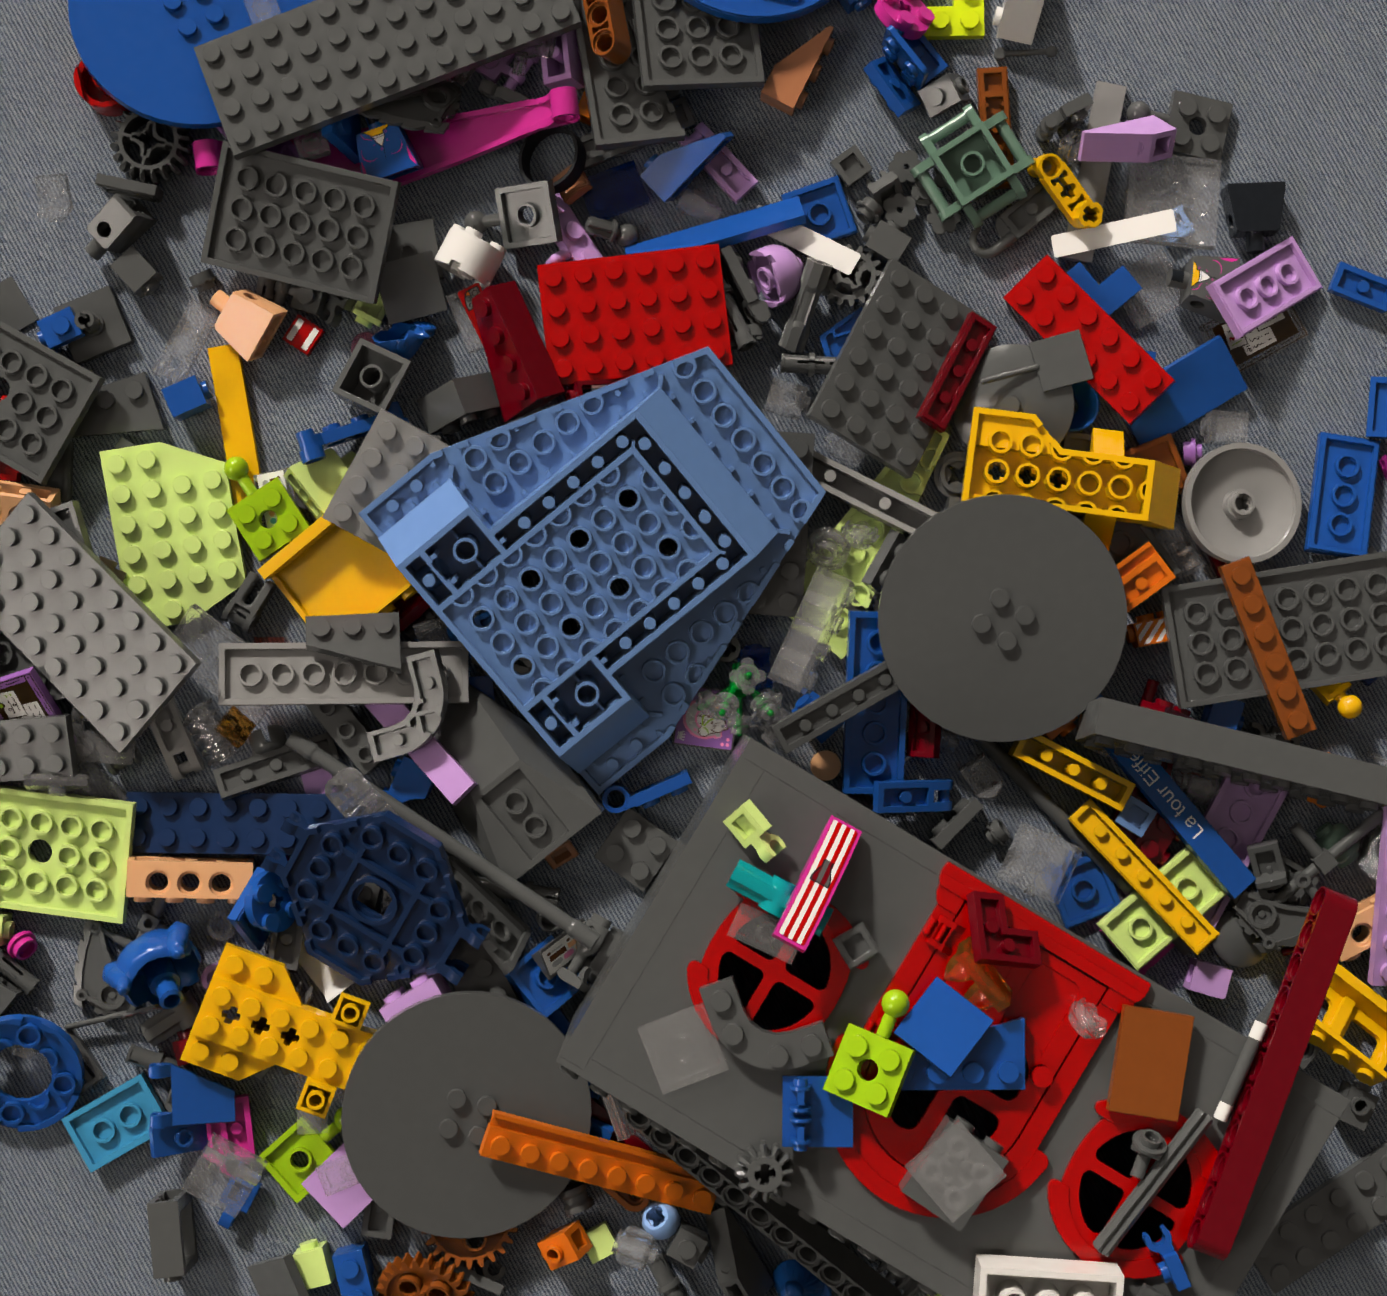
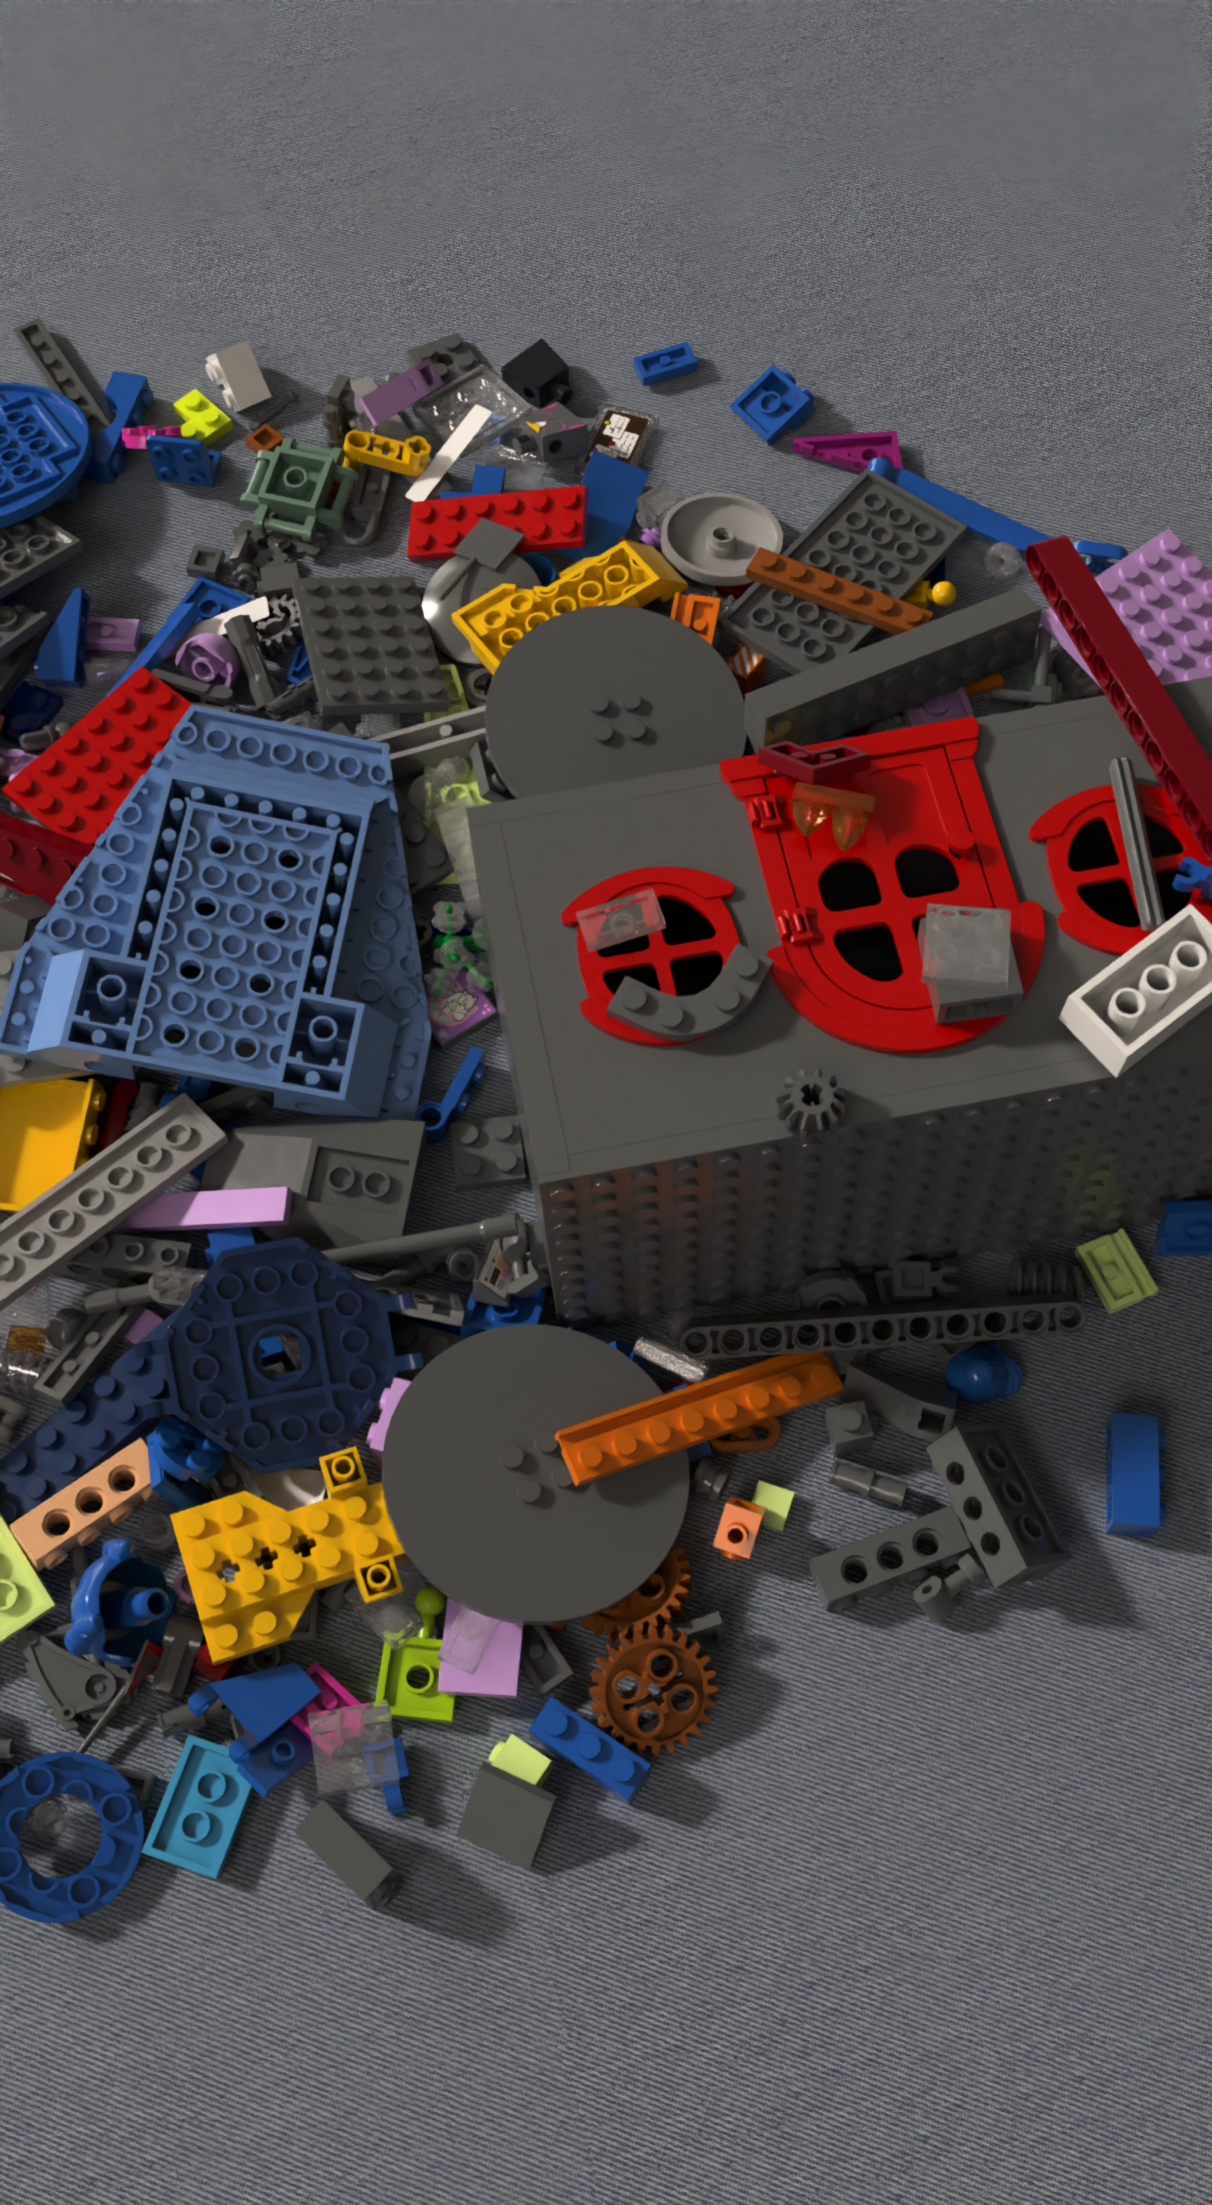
camera: 35 degrees left, 25 degrees down
(361, 637) = (82, 1153): dark grey wing -> none
(426, 713) = (195, 1175): plate -> none
(562, 855) = (423, 1207): nougat slope -> none
(635, 1248) = (805, 1470): clear head -> none
(661, 1220) = (805, 1428): light blue piece -> none
(683, 1048) = (640, 1071): clear tile -> none
(751, 828) = (526, 857): yellowish green plate -> none
(767, 890) = (604, 882): teal piece -> none
(791, 75) = (103, 538): nougat slope -> none
(814, 1115) = (806, 1020): blue hinge -> none
(817, 884) = (624, 841): slope -> none
(856, 945) = (706, 870): dark grey tile -> none
(891, 86) = (177, 494): blue plate -> none
(891, 1058) = (817, 914): lime plate -> none
(943, 1027) = (840, 861): blue tile -> none
(944, 94) = (234, 471): dark grey bracket -> none
(956, 372) = (416, 614): dark red tile -> none
(993, 1063) = (886, 882): blue wing -> none
(1086, 1021) = (951, 770): clear plate -> none
(1148, 1145) = (1102, 820): dark grey plate -> none
(1150, 1062) = (1035, 764): dark orange tile -> none
(1240, 1071) = (1111, 715): dark grey bar -> none
(1264, 287) = (593, 403): lavender tile -> none
(1342, 495) = (786, 484): blue tile -> none

